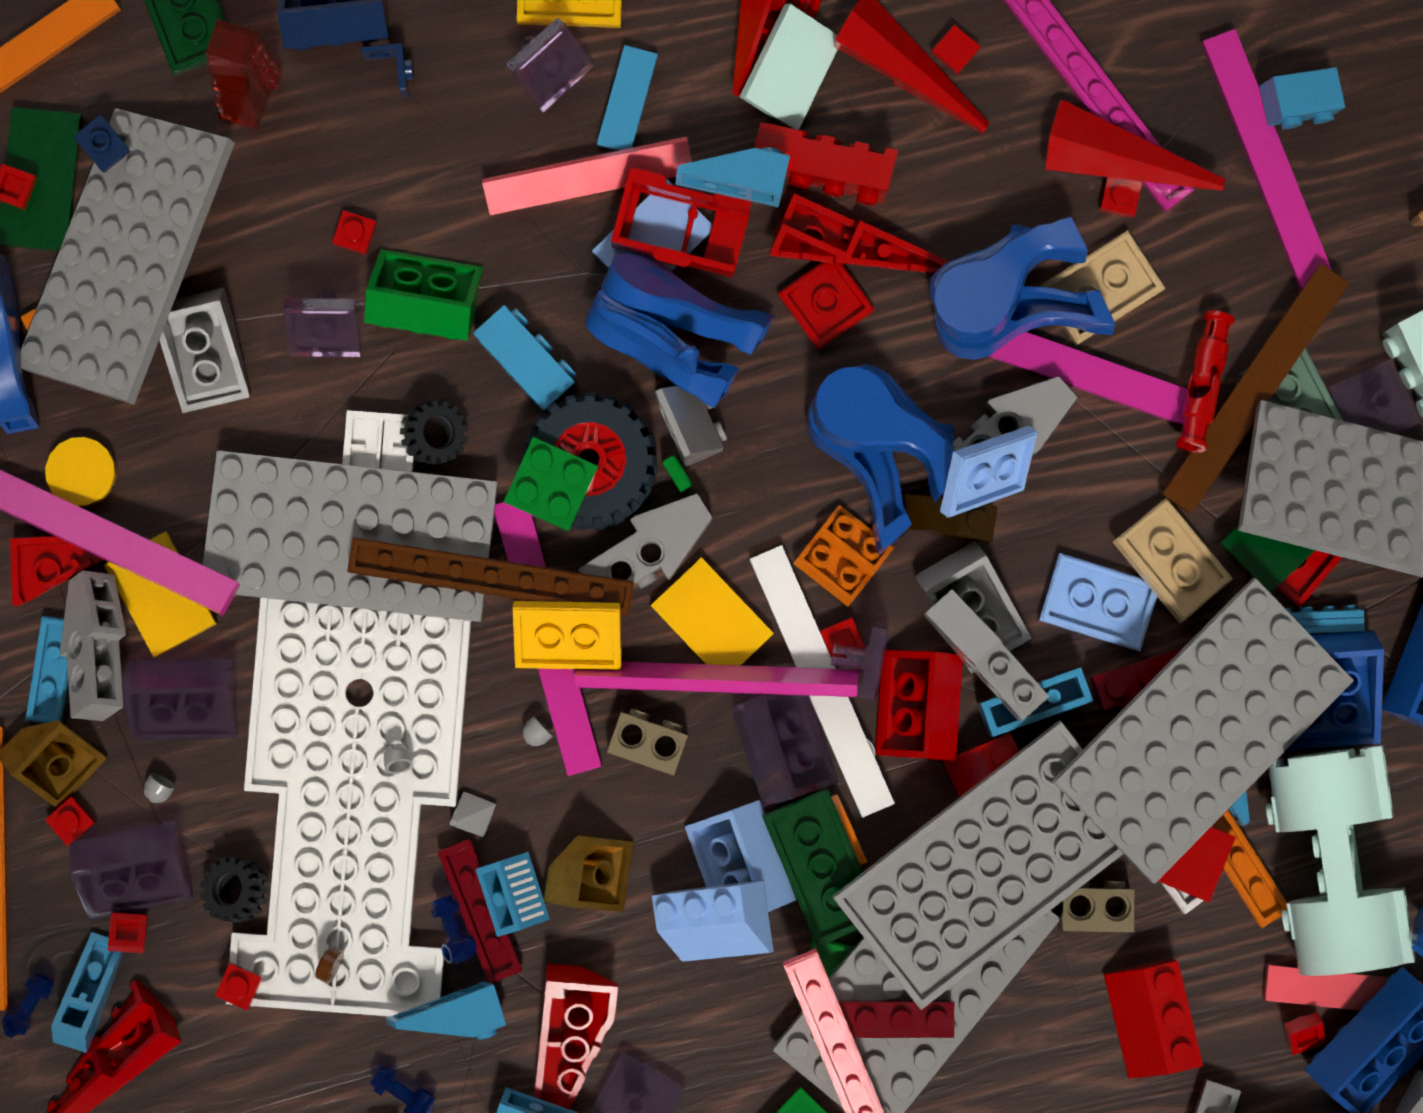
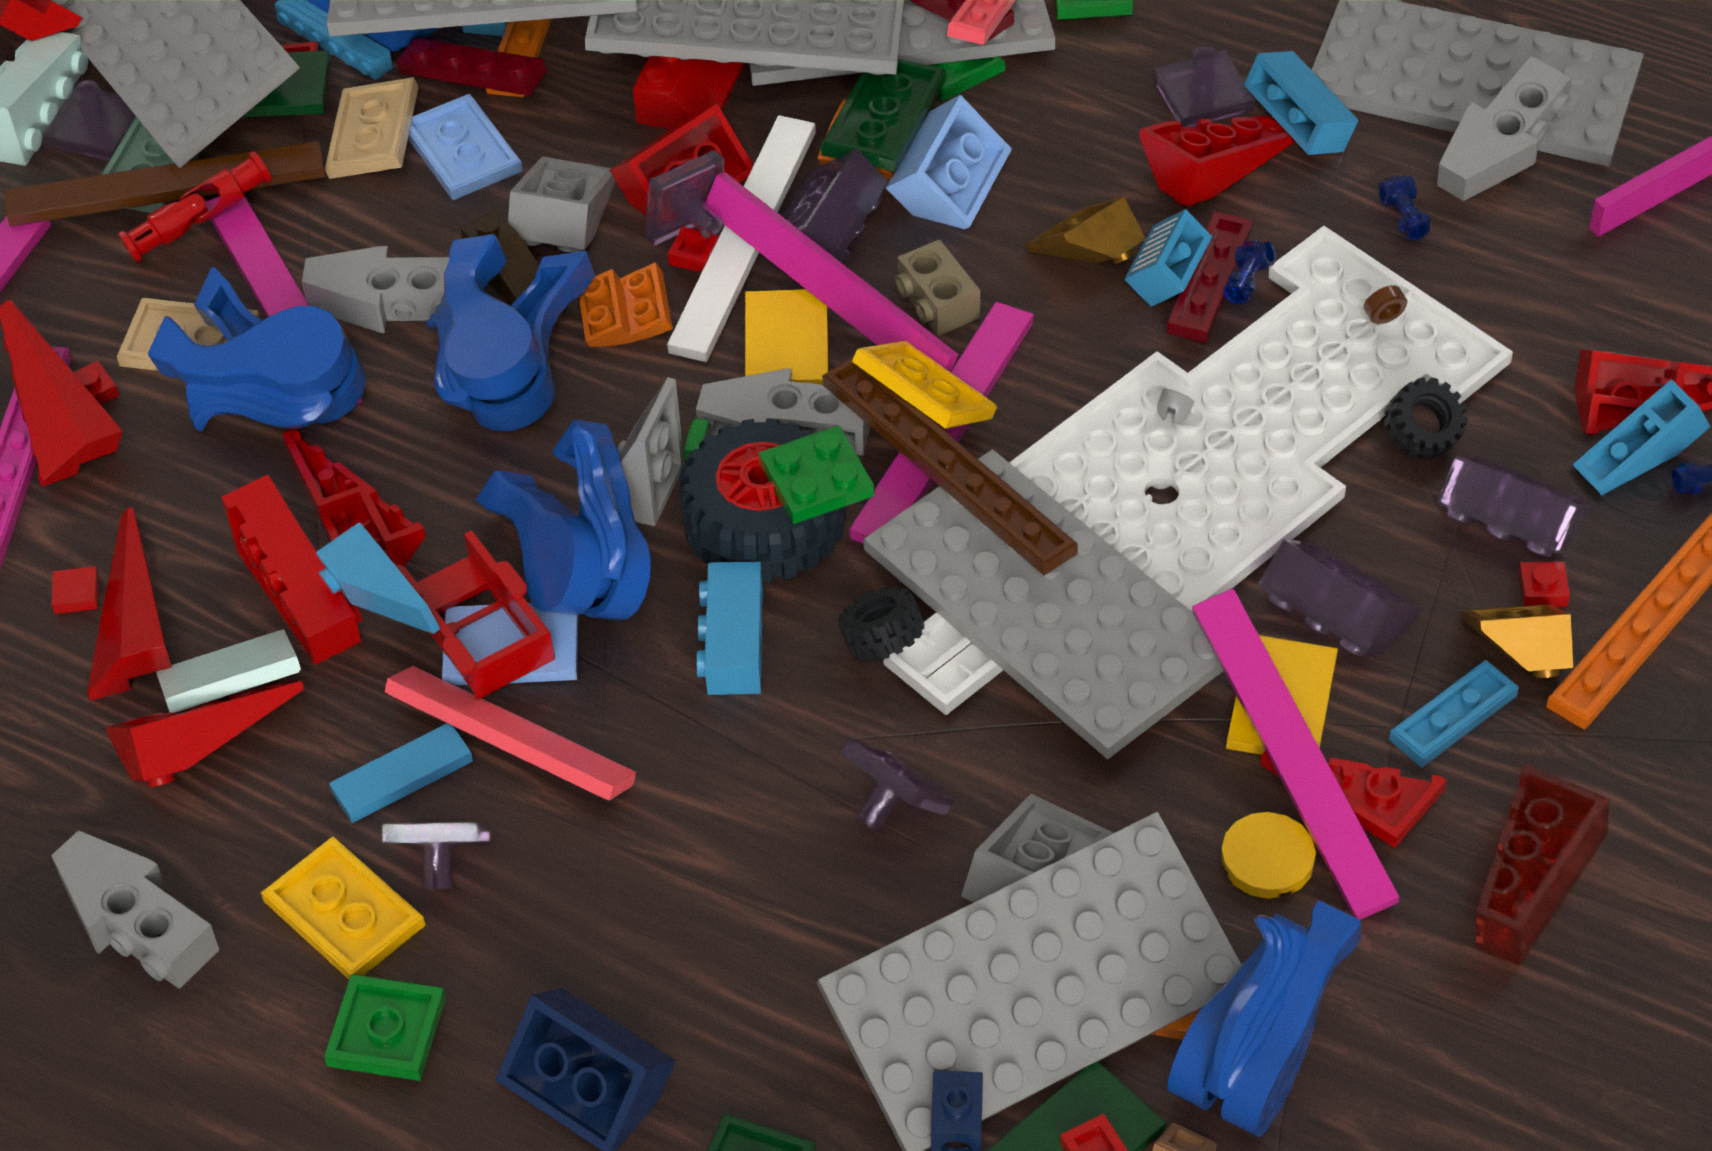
camera: 135 degrees left, 35 degrees down
(91, 645) = (1384, 685): light grey brick -> none
(127, 932) = (1562, 460): red plate -> none
(158, 788) = (1428, 549): light grey hinge -> none
(239, 986) = (1487, 349): red plate -> none
(242, 73) = (735, 1037): clear red wedge -> none
(354, 232) = (781, 858): red plate -> none
(404, 66) = (576, 958): dark blue bracket -> none
(423, 295) = (769, 748): green slope -> none
(464, 1013) = (1307, 211): dark azure slope -> none
(473, 814) = (1143, 345): light grey slope -> none
(535, 732) = (1028, 360): light grey hinge -> none
(714, 921) = (1006, 130): light blue slope -> none
(826, 303) = (425, 486): red tile -> none
(986, 655) = (590, 123): light grey brick -> none
(988, 471) = (434, 236): light blue tile -> none
(1064, 693) = (590, 103): dark azure brick -> none

